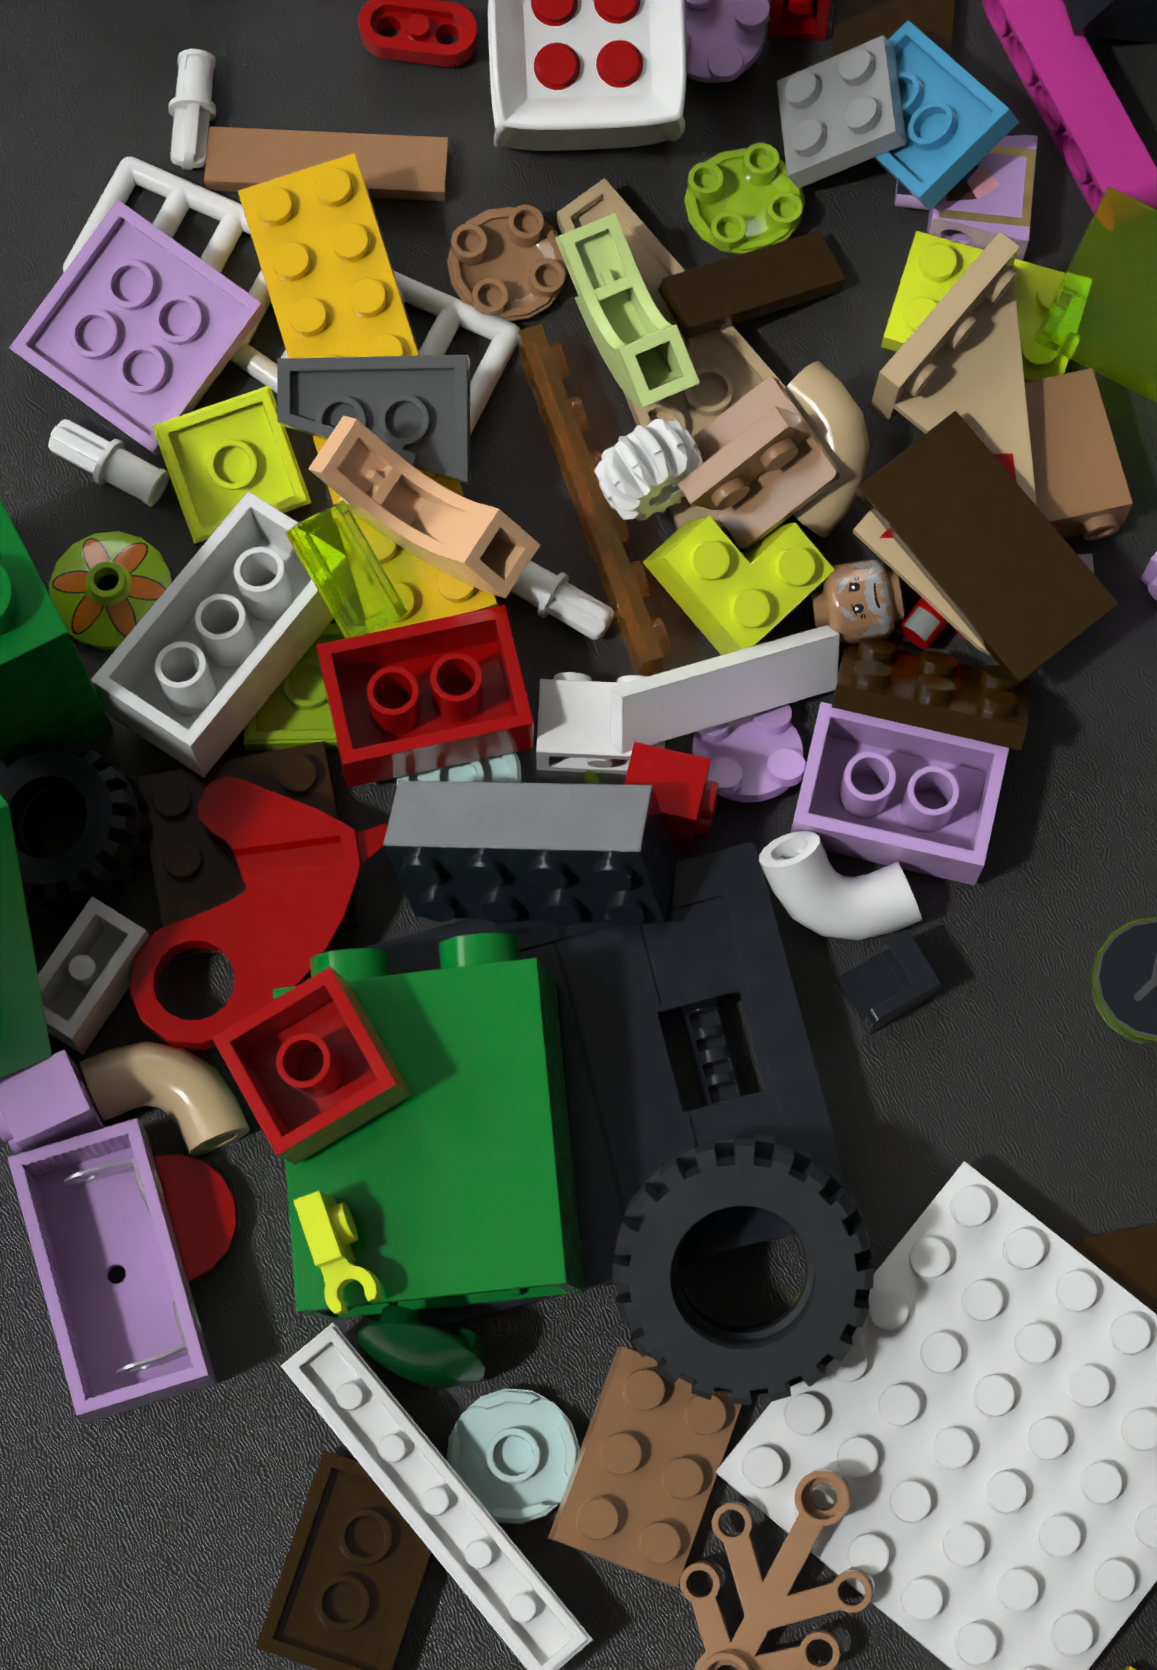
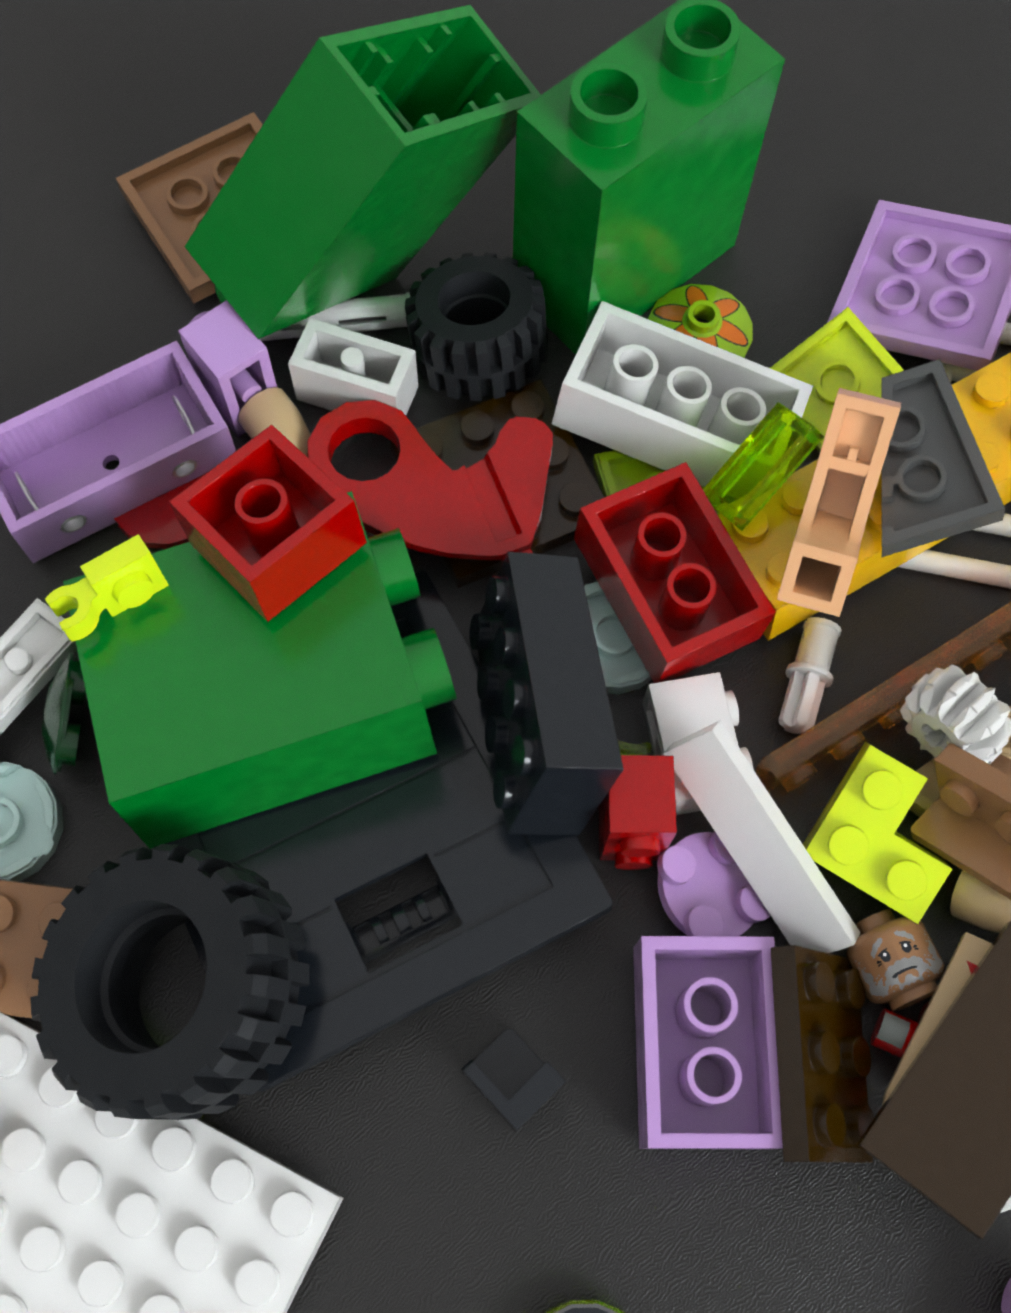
camera: 75 degrees right, 5 degrees down
(108, 461) = (808, 296): white axle -> none
(835, 902) = (579, 1003): white cylinder -> none

